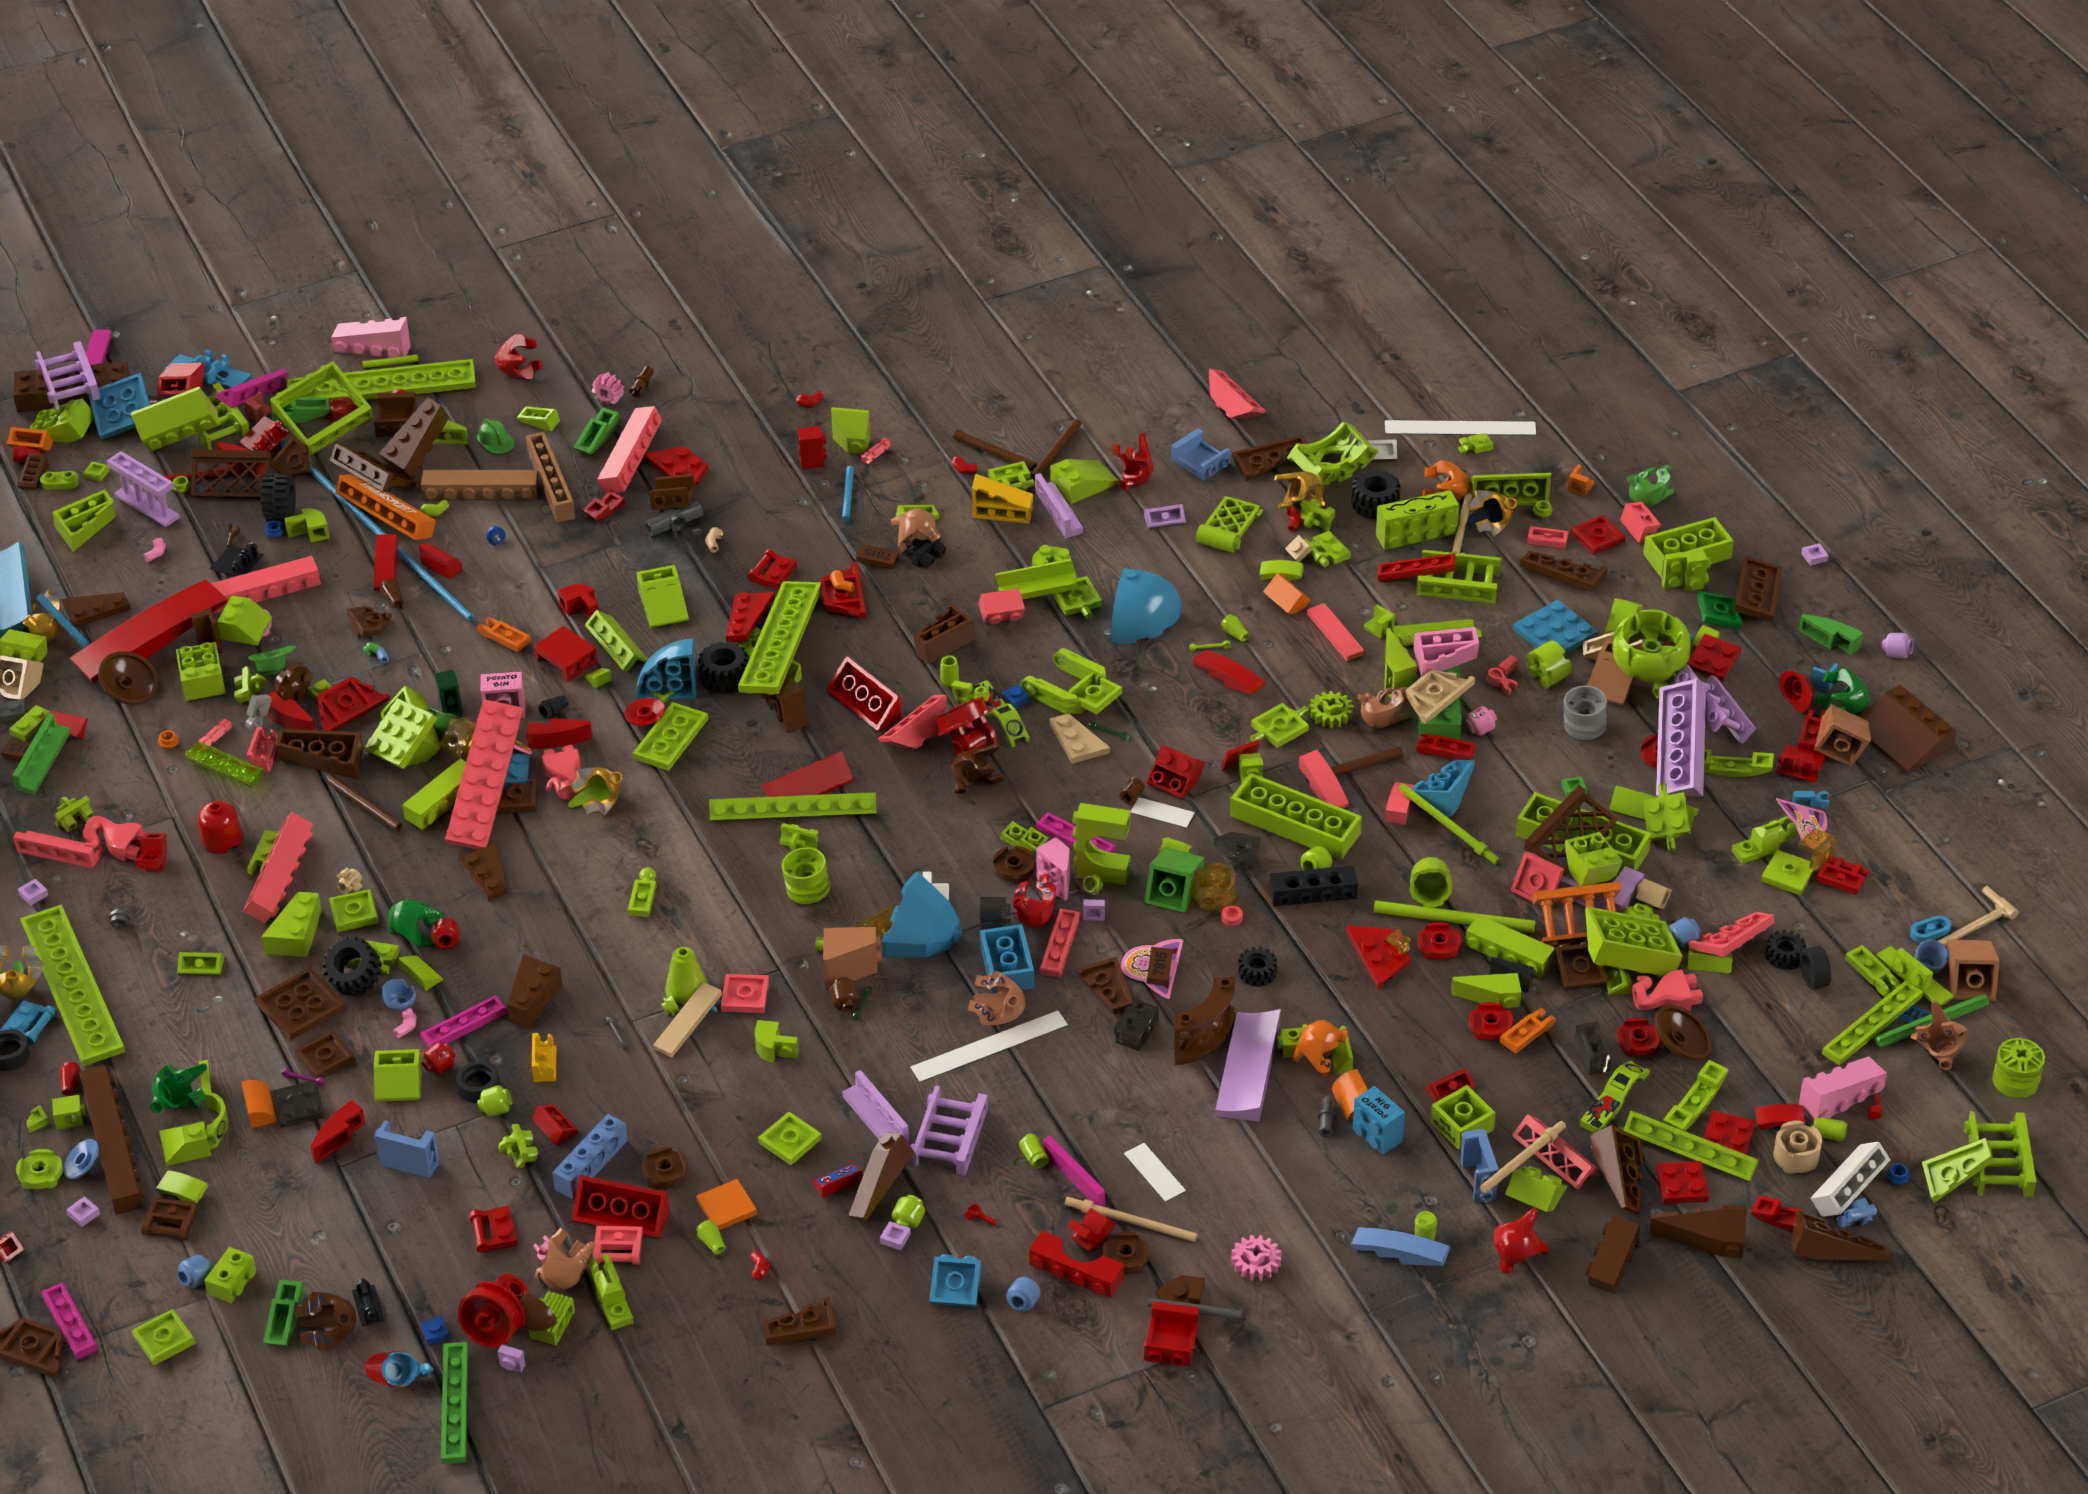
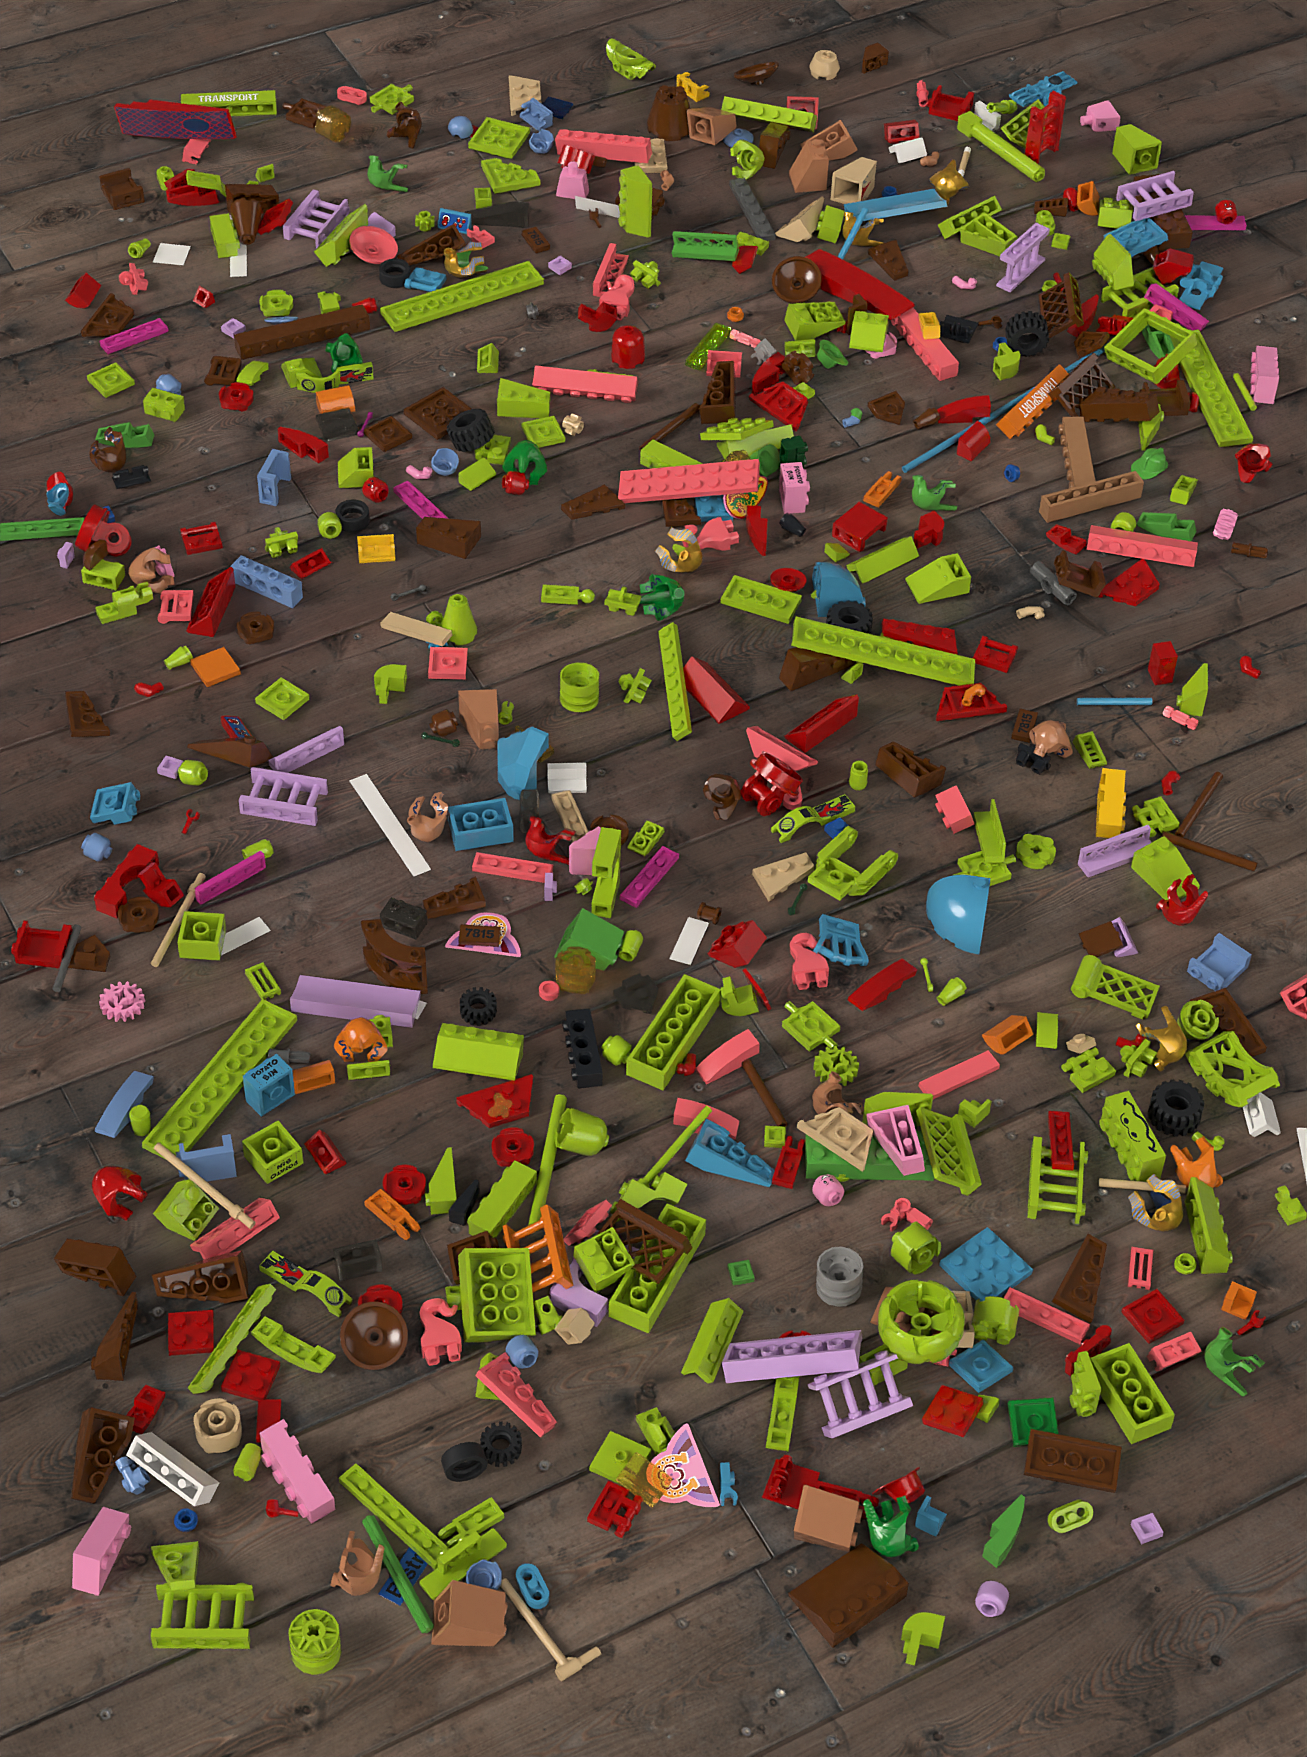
camera: 85 degrees right, 5 degrees up
(44, 532) = (953, 224): none -> lime brick
(93, 336) = (1226, 211): none -> red head
(228, 1213) = (228, 397): none -> red plate
(245, 570) = (929, 325): none -> yellow slope
(527, 598) = (929, 498): none -> bright green piece
(594, 460) = (1124, 521): none -> lime head
(663, 843) = (622, 600): none -> lime hips
(664, 806) = (665, 599): none -> green piece
(964, 692) = (833, 788): lime plate -> none
(970, 899) = (569, 814): none -> tan tile
(1166, 1188) = (201, 935): none -> lime brick
(1169, 527) = (1101, 939): none -> reddish brown piece
(1182, 695) = (843, 932): none -> dark azure plate
(1203, 722) = (807, 965): none -> coral hips
(1222, 1146) = (269, 993): none -> lime tile
(1271, 466) = (1197, 1020): none -> lime cone
(1324, 962) = (478, 1051): none -> lime slope
(1362, 1169) = (221, 1079): none -> lime plate
(1409, 482) = (1217, 1142): none -> lime arm
(1413, 758) = (774, 1136): none -> lime tile
(1502, 845) = (665, 1189): none -> lime arch
(1597, 476) = (1254, 1322): none -> red hand
(1604, 597) = (1048, 1316): none -> coral tile
(1642, 571) = (1093, 1346): none -> red hinge
(1667, 816) = (686, 1342): lime plate -> none
(1806, 591) = (1069, 1517): none -> lime plate
(1936, 691) = (921, 1629): none -> lime brick
(1946, 1228) = (99, 1550): none -> bright pink wedge

